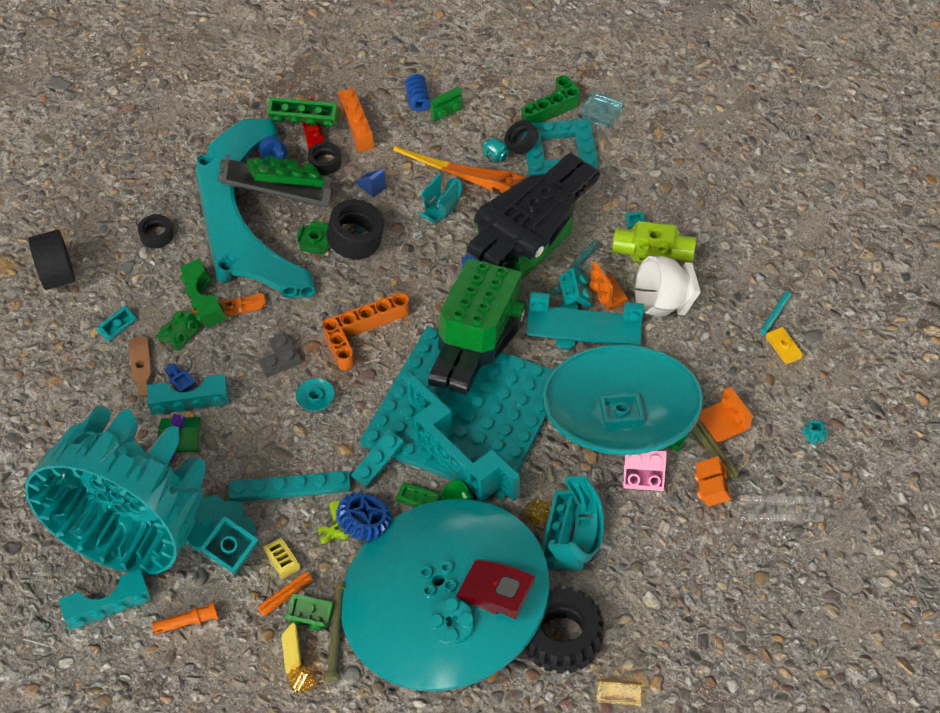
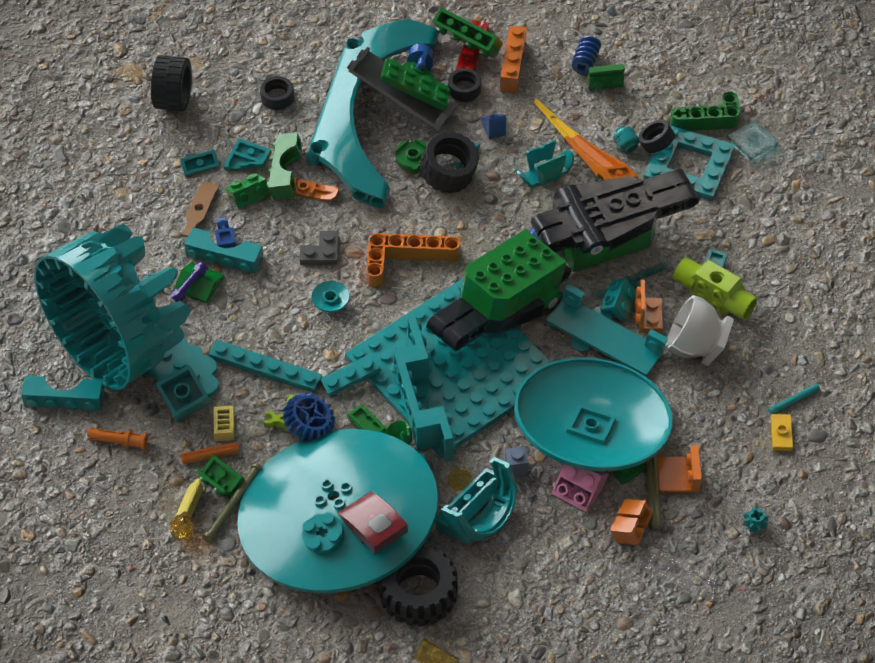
camera: 25 degrees right, 0 degrees up
(160, 298) = (247, 156): none -> teal wing
(578, 467) = (518, 460): none -> sand blue brick

